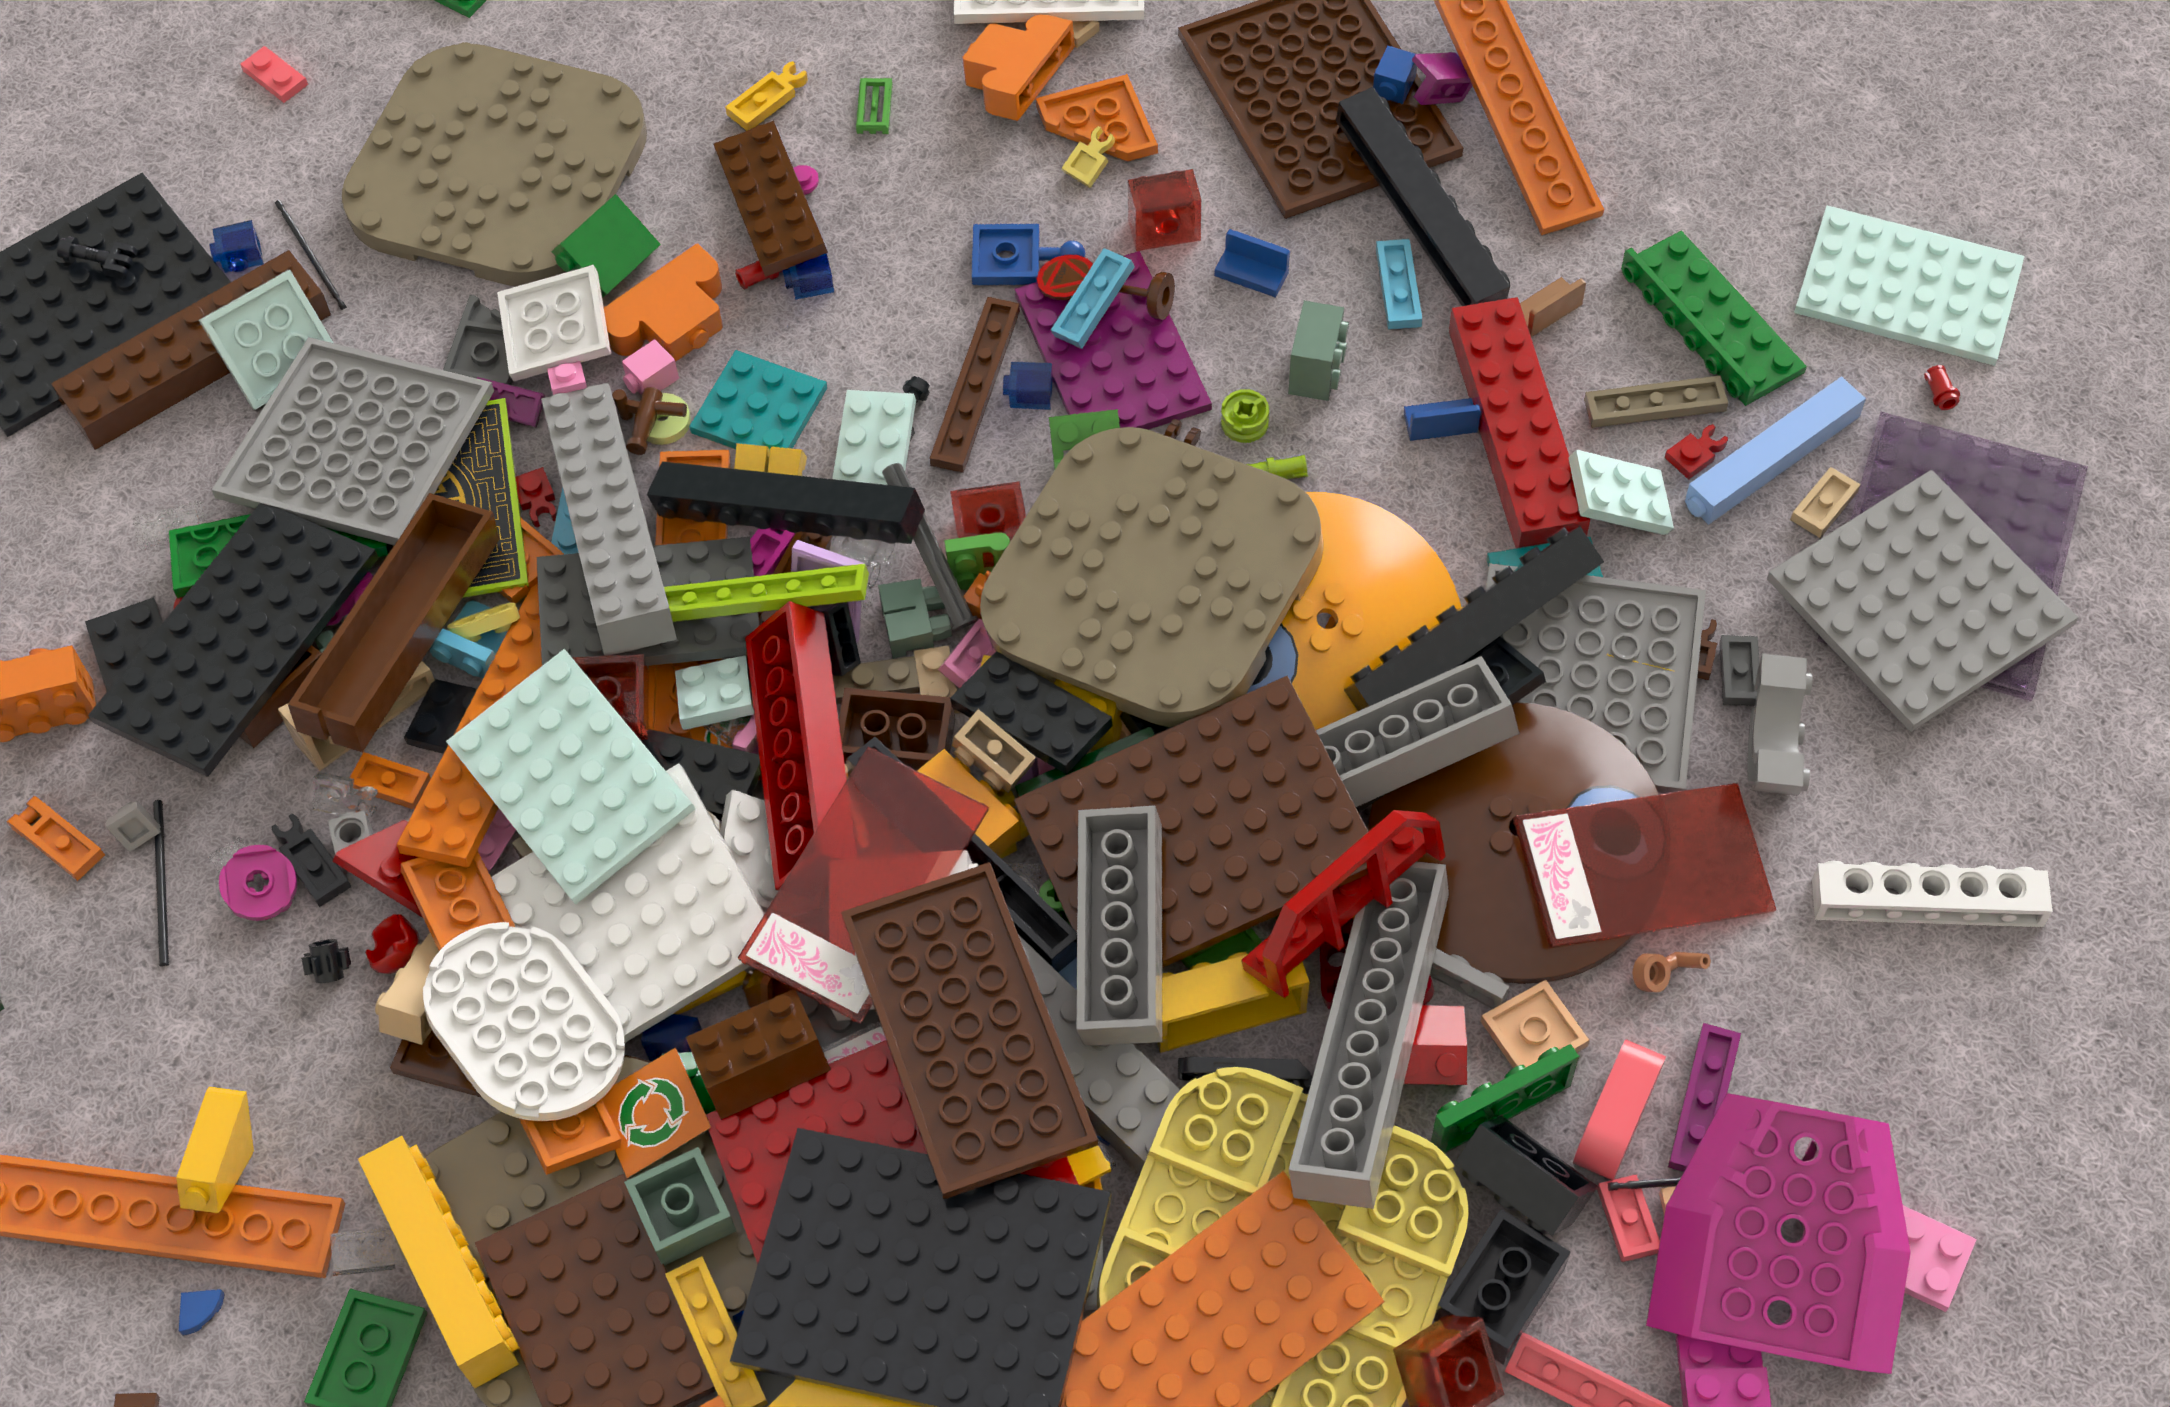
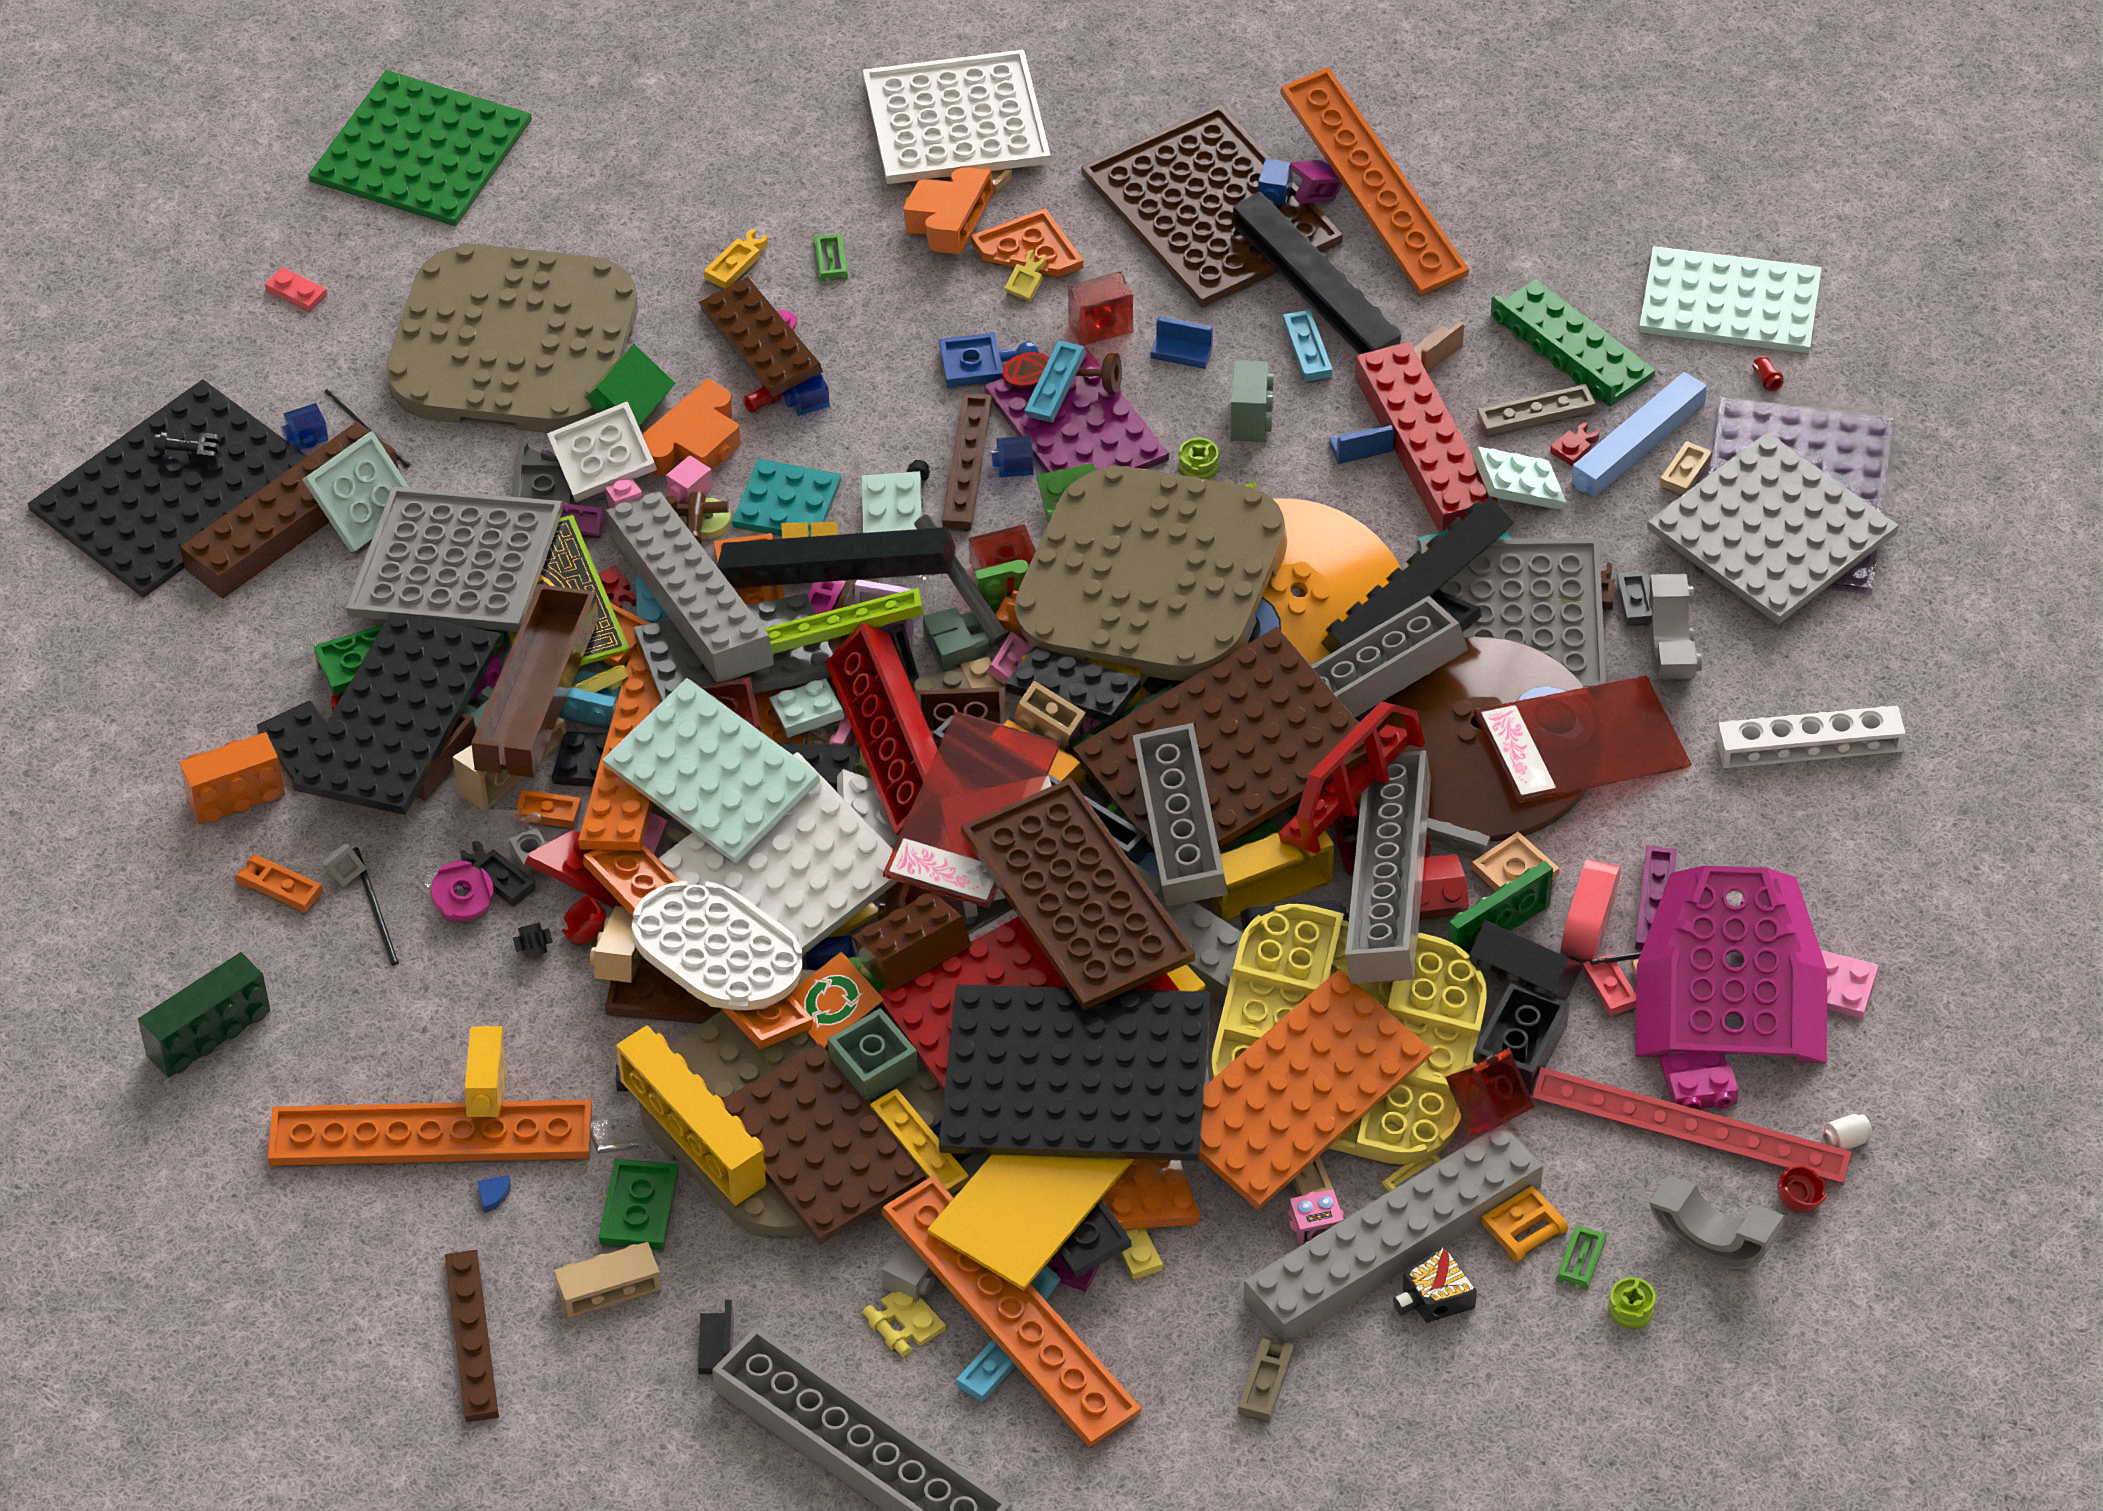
camera: 10 degrees left, 10 degrees down
(1653, 971) = (1602, 816): nougat plate -> none

